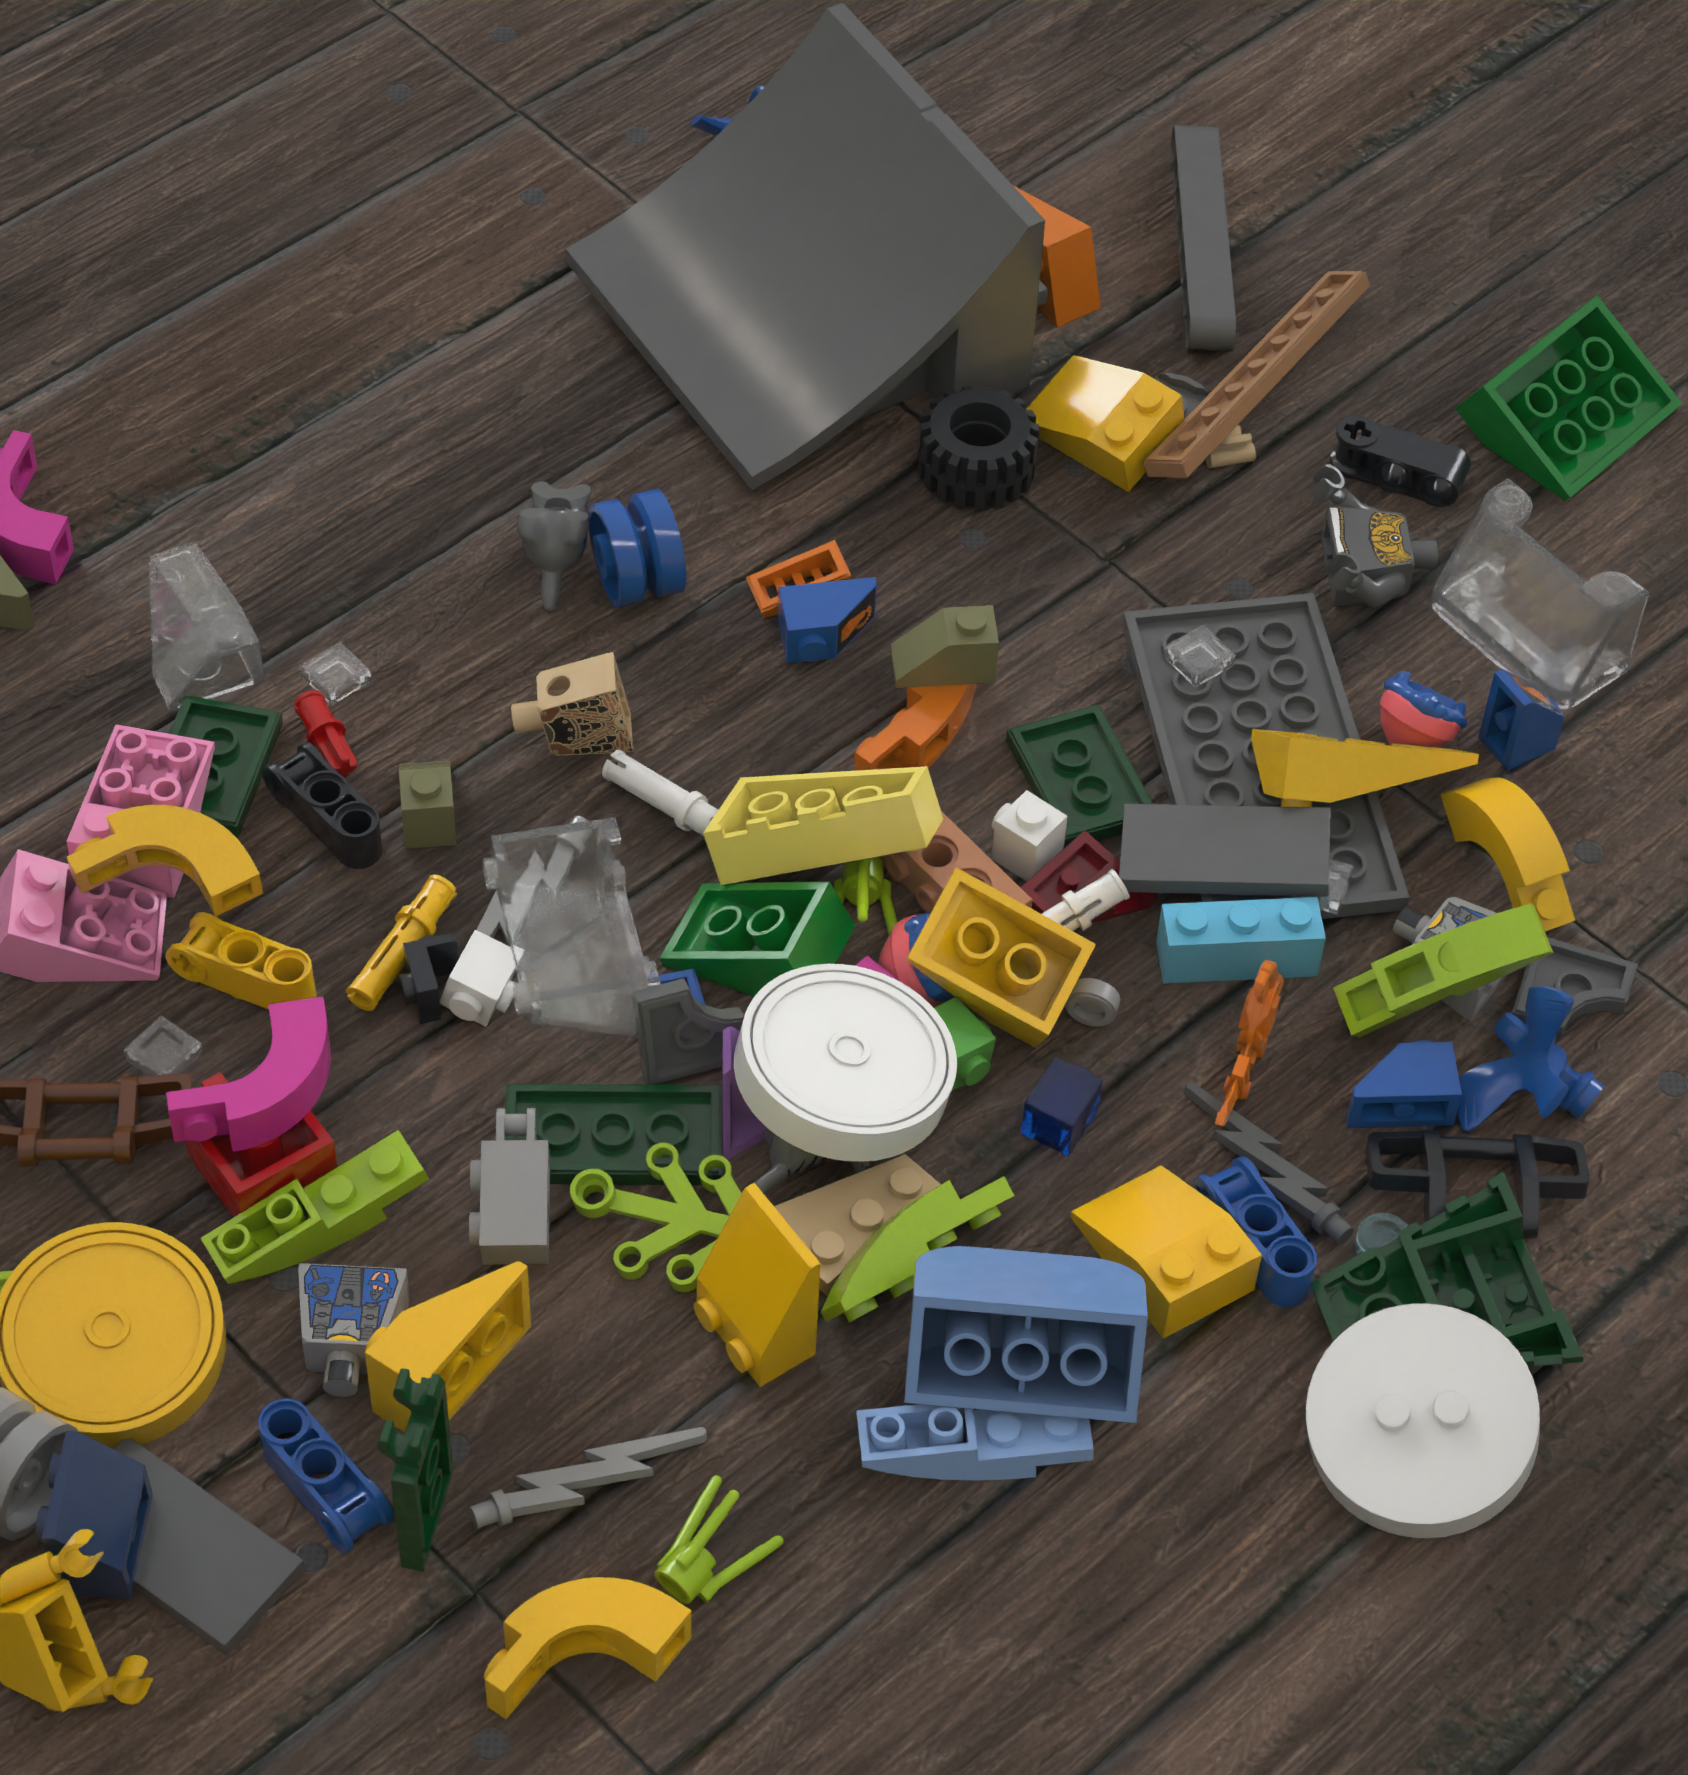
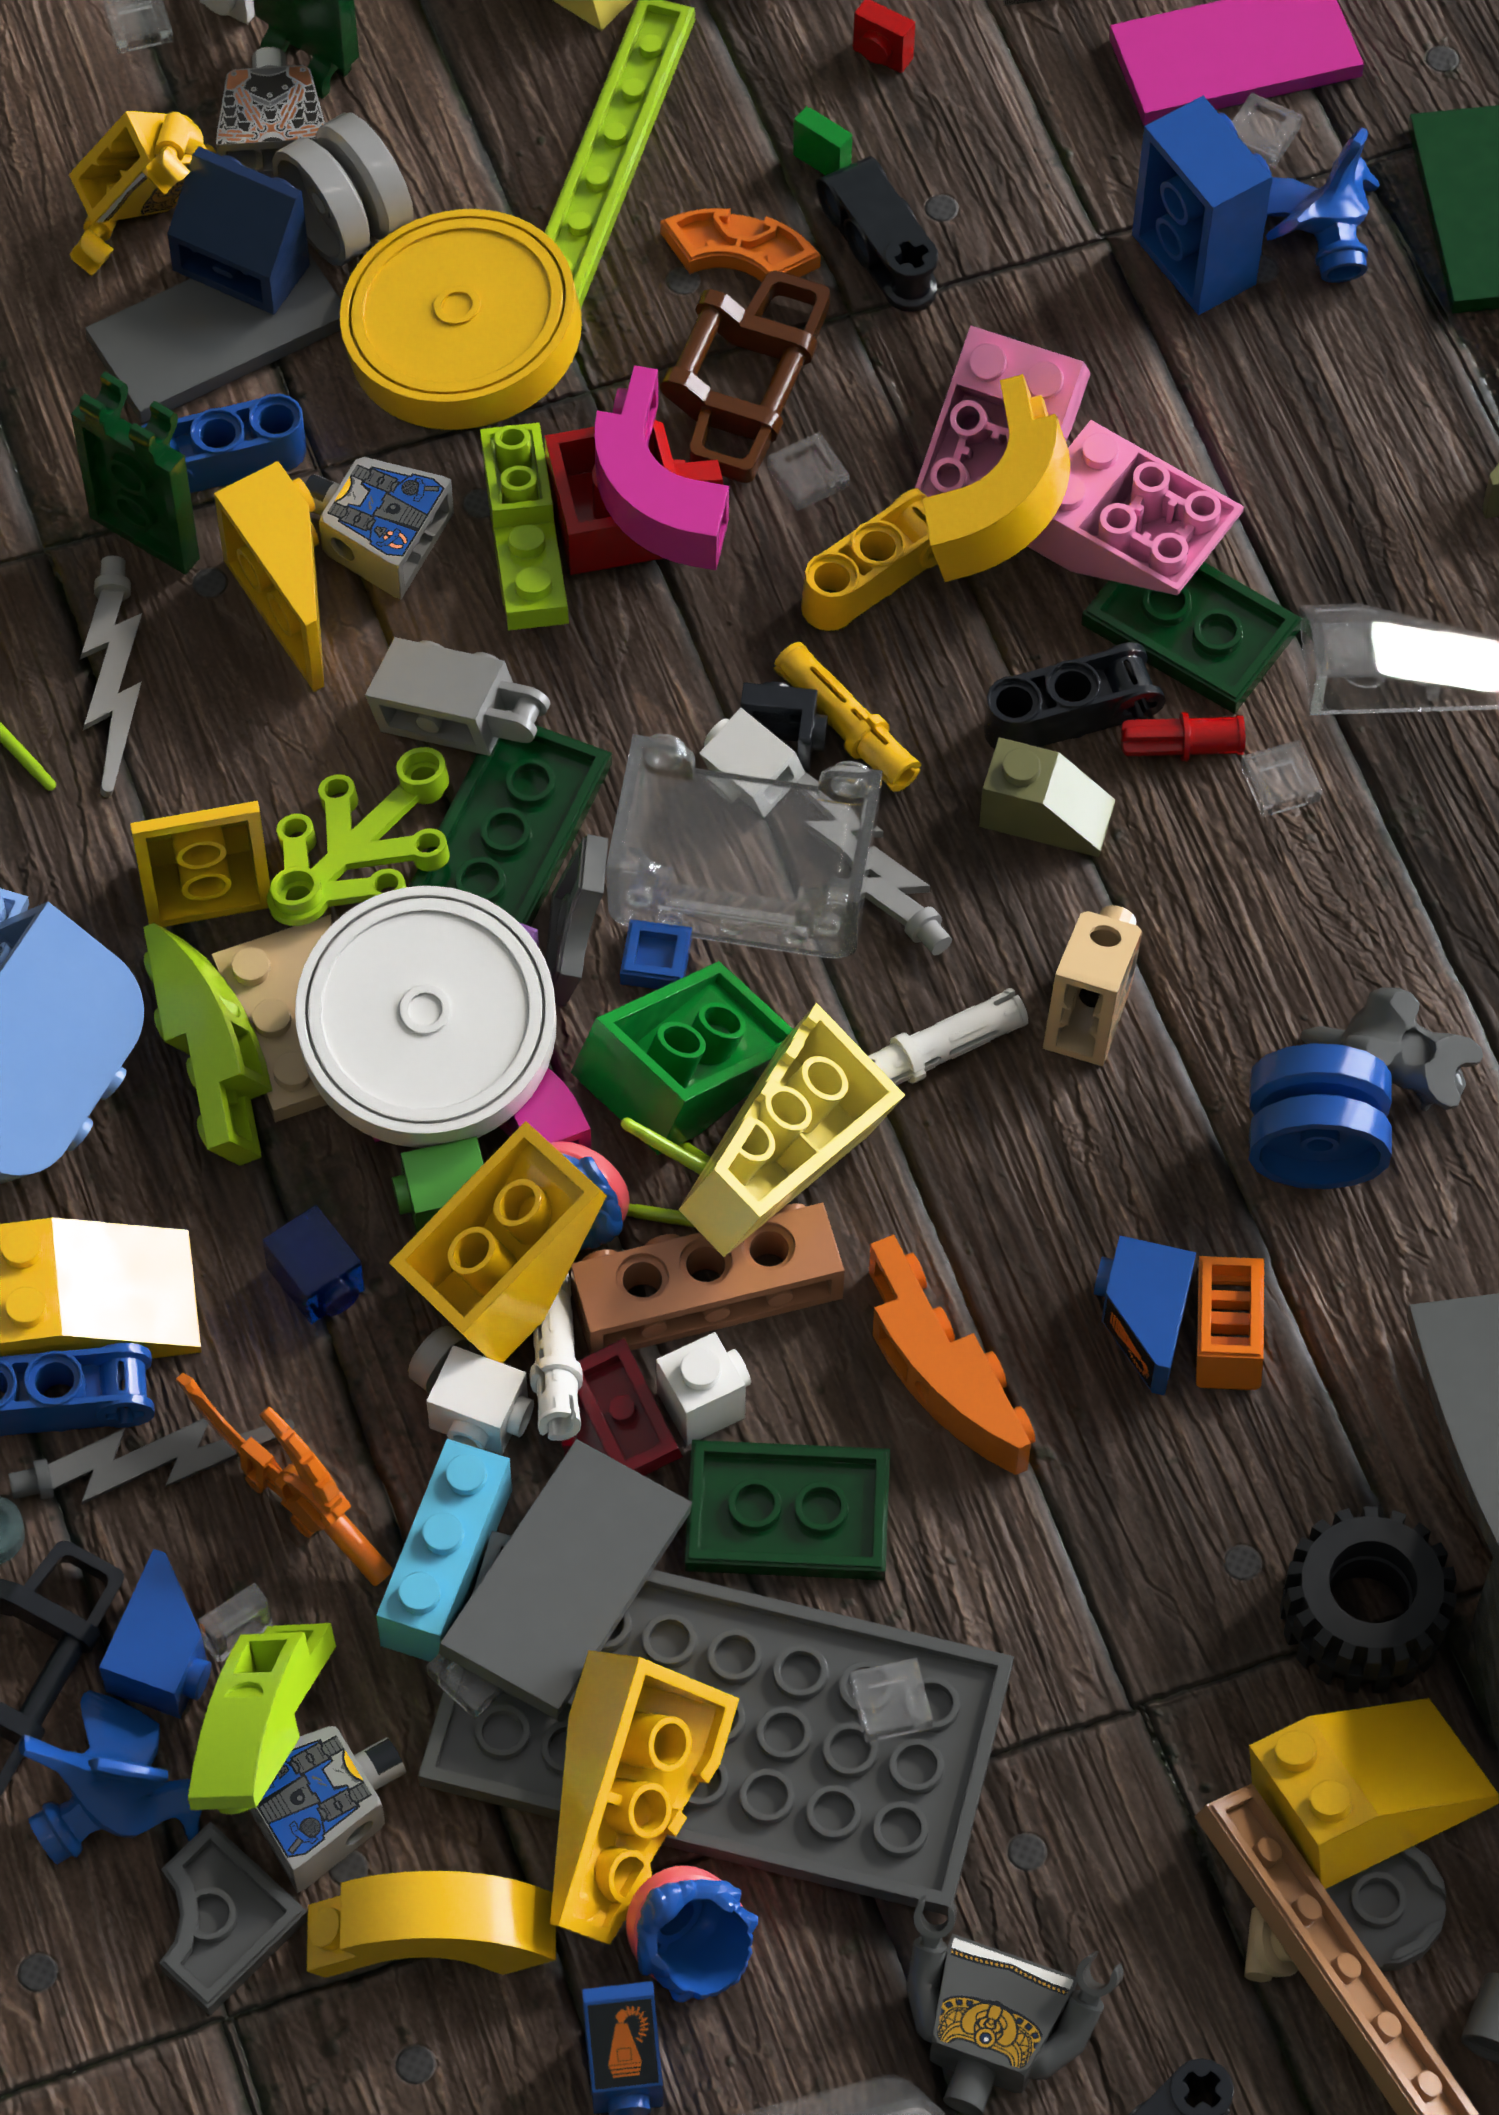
camera: 115 degrees right, 10 degrees up
(948, 649) = (987, 1381): olive slope -> none
(1118, 960) = (479, 1401): none -> white brick
(1363, 1043) = (242, 1614): none -> clear tile

